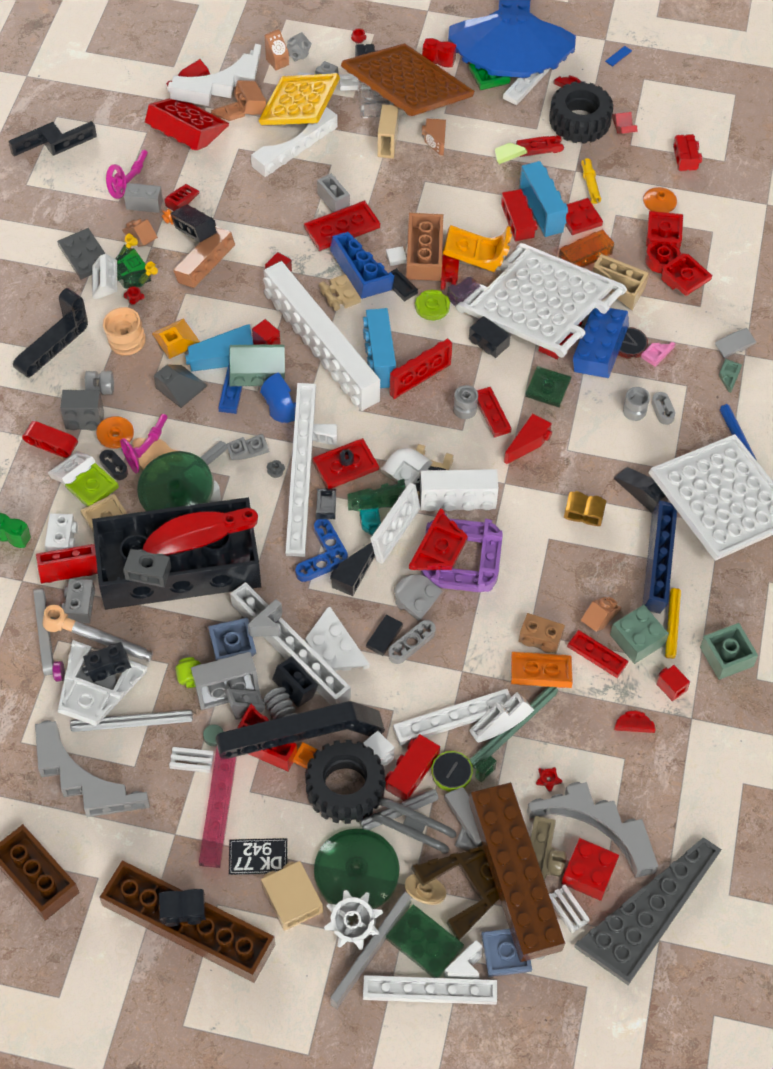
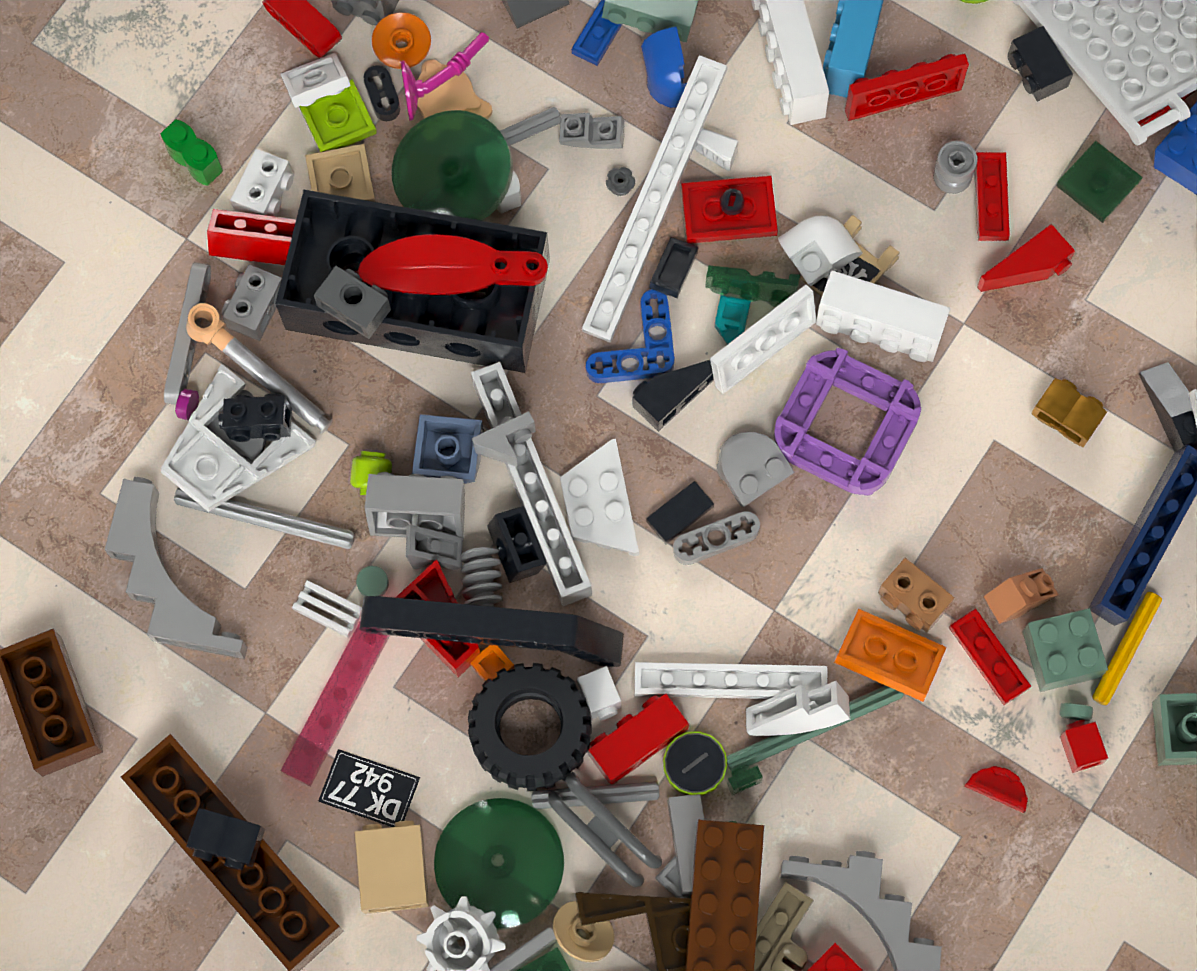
camera: 25 degrees right, 15 degrees up
(440, 545) = (815, 401): red wing -> none
(549, 784) = (840, 820): red plate -> none
(658, 665) = (1076, 711): none -> sand green tile

